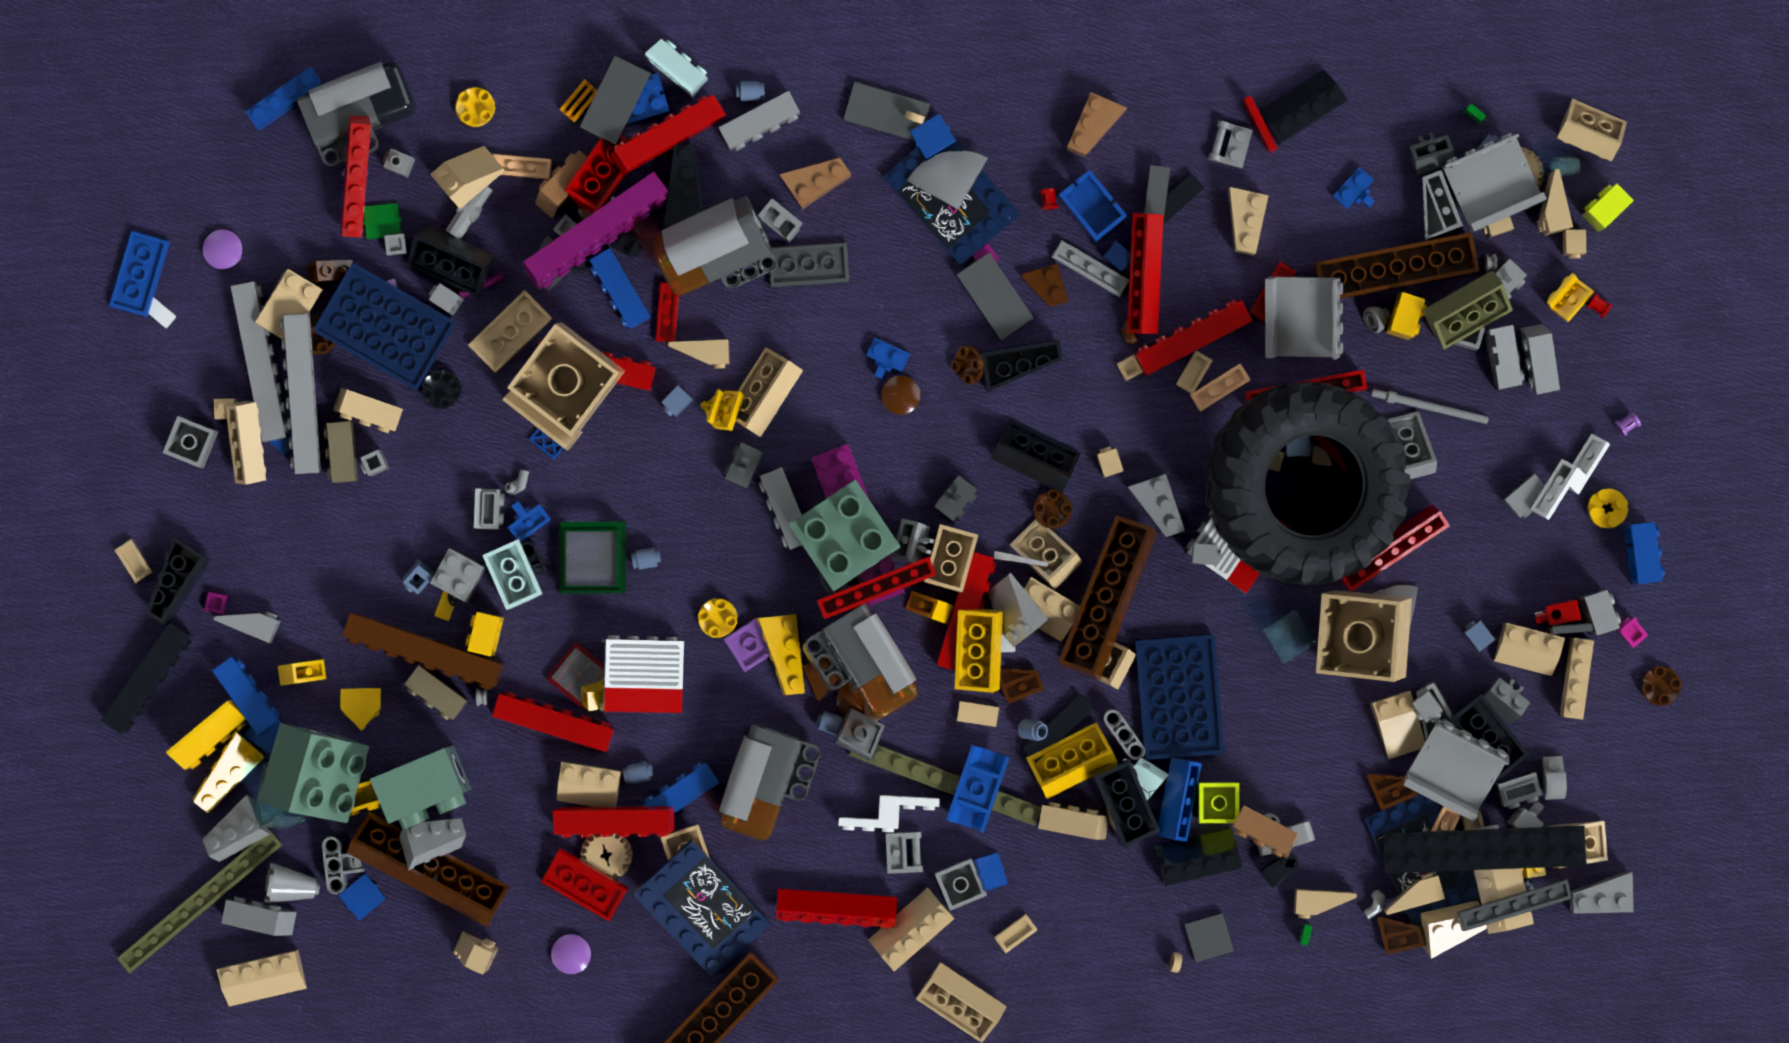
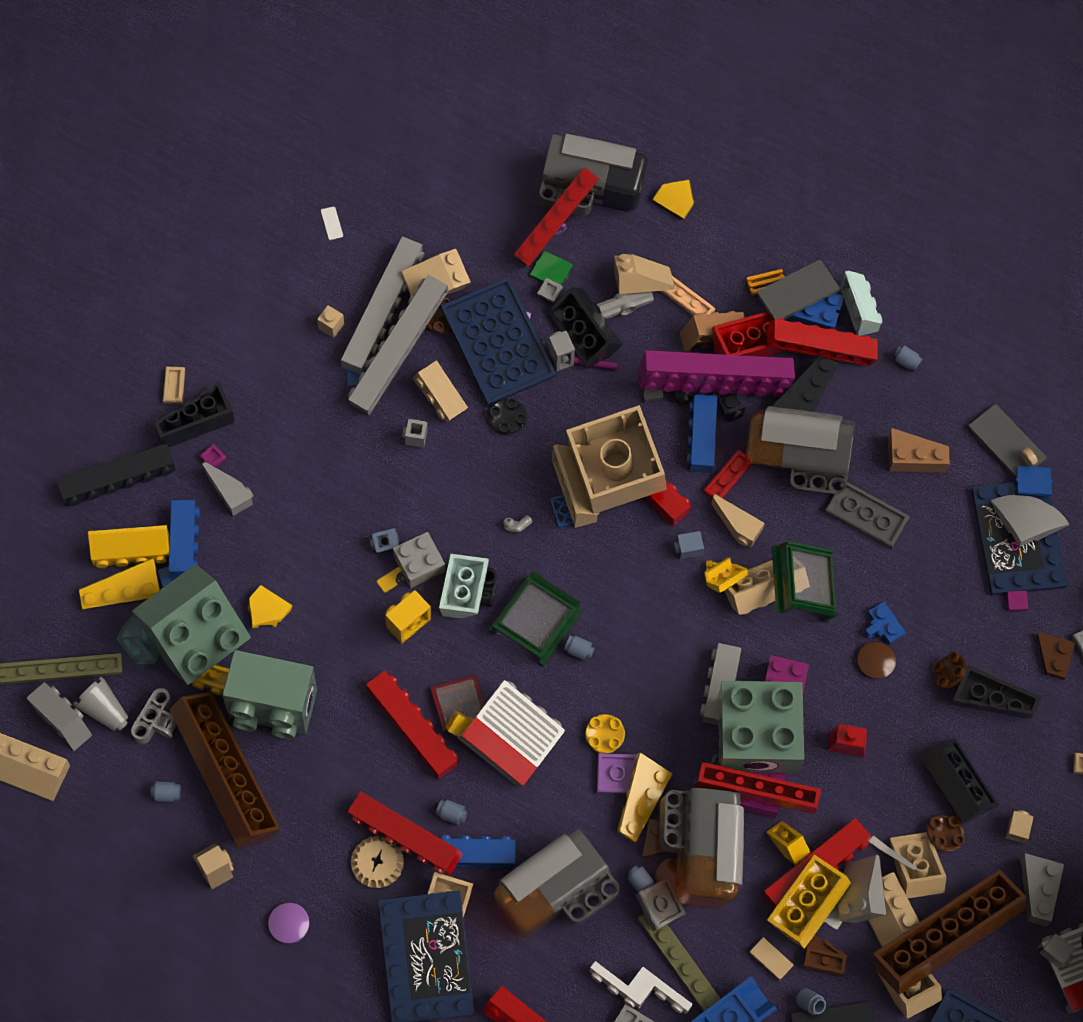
camera: 30 degrees right, 20 degrees down
(139, 273) = (338, 189): blue tile -> none
(190, 442) = (285, 326): light grey brick -> none
(222, 249) = (414, 211): medium lavender dish -> none
(235, 831) = (93, 635): light grey wedge -> none
(245, 442) = (328, 351): tan brick -> none
(283, 99) = (534, 137): blue brick -> none
(301, 672) = (239, 551): yellow slope -> none
(327, 270) = (483, 273): reddish brown bracket -> none
(341, 452) = (395, 410): dark tan brick -> none
(362, 897) = (153, 759): blue piece -> none
(393, 918) = (166, 791): none -> sand blue brick
(398, 162) = (595, 236): light grey brick -> none
(424, 650) = (349, 596): reddish brown brick -> none
(431, 840) = (246, 744): light grey wedge -> none
(435, 693) = (333, 638): dark tan brick -> none
(444, 72) = (676, 197): none -> yellow slope
(475, 107) = (682, 235): yellow dish -> none
(481, 697) = (368, 666): light grey bush -> none
(488, 509) = (479, 526): light grey window -> none
(510, 331) = (587, 407): tan tile -> none
(527, 521) = (505, 556): blue hinge -> none
(584, 884) = (342, 872): red tile -> none
(588, 785) = (404, 792): tan slope -> none
(743, 465) = (709, 628): dark grey brick -> none
(759, 121) = (900, 383): light grey brick -> none
(780, 220) = (867, 463): light grey window -> none
(796, 372) = (804, 579): none -> piece
(912, 540) = (813, 773): light grey brick -> none
(922, 485) = (848, 740): none -> red torso
(952, 557) = (835, 812): tan slope -> none
(955, 498) = (869, 770): dark grey brick -> none
(995, 296) = (1005, 634): dark grey tile -> none

